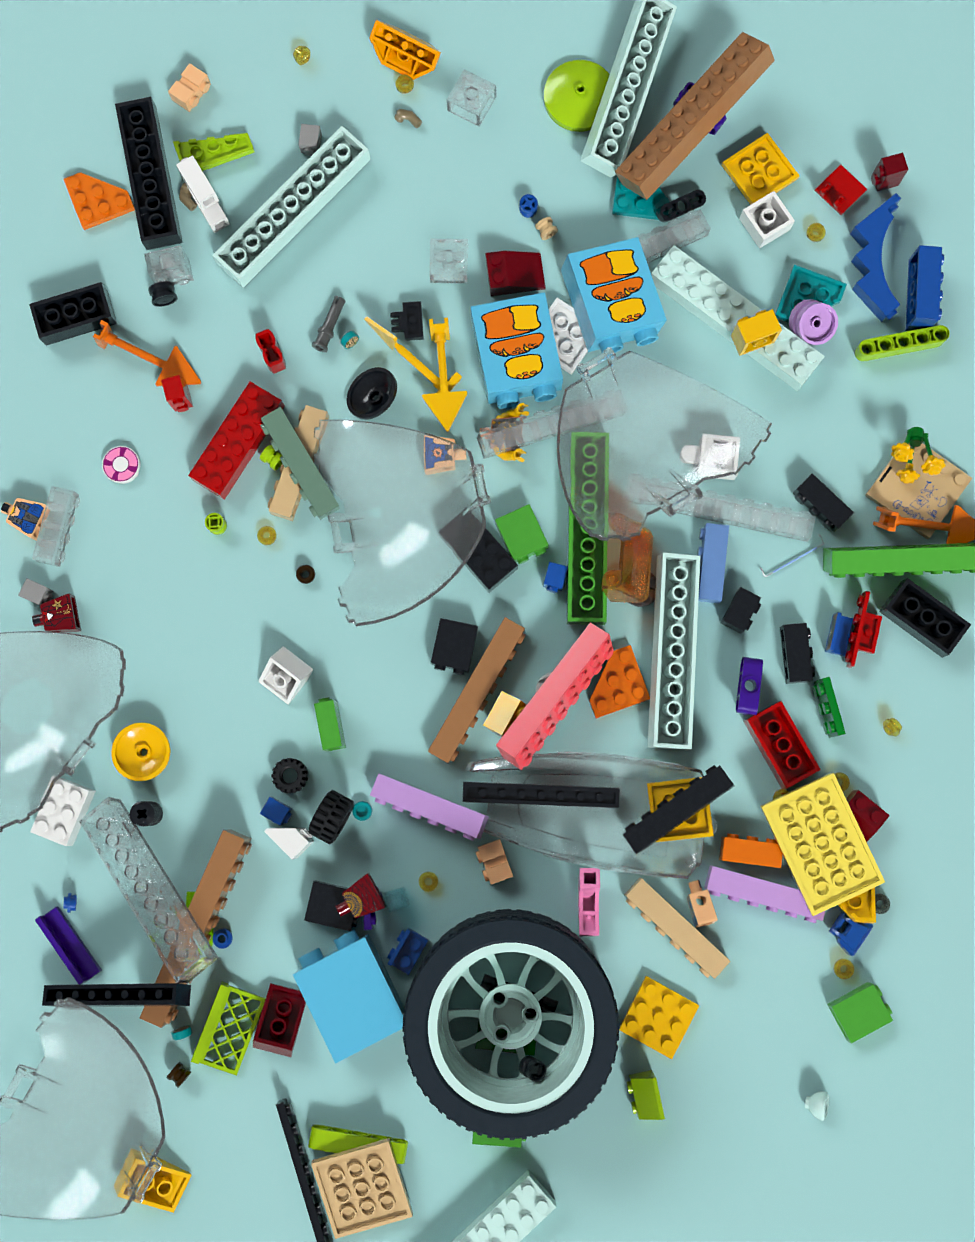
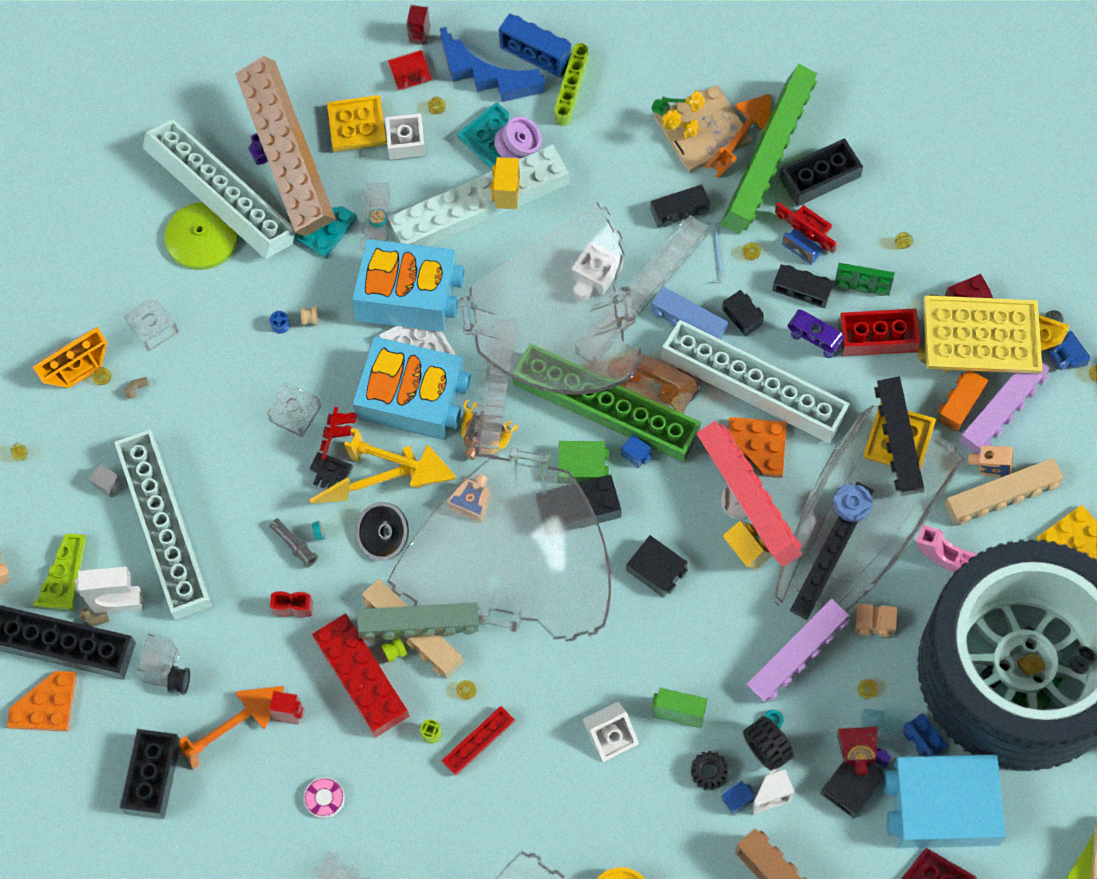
camera: 65 degrees left, 15 degrees down
(226, 567) = (478, 740): none -> red plate
(299, 574) = (521, 665): dark brown plate -> none
(449, 303) = (335, 431): none -> red plate
(476, 691) = (709, 566): medium nougat brick -> none
(507, 1023) = (1031, 664): none -> pearl gold plate
(514, 272) = (334, 362): dark red slope -> none
(595, 794) = (852, 502): none -> medium blue tile
(668, 236) = (377, 217): none -> tile
(674, 205) = (348, 203): black beam -> none
(804, 592) = (751, 255): none -> clear yellow plate

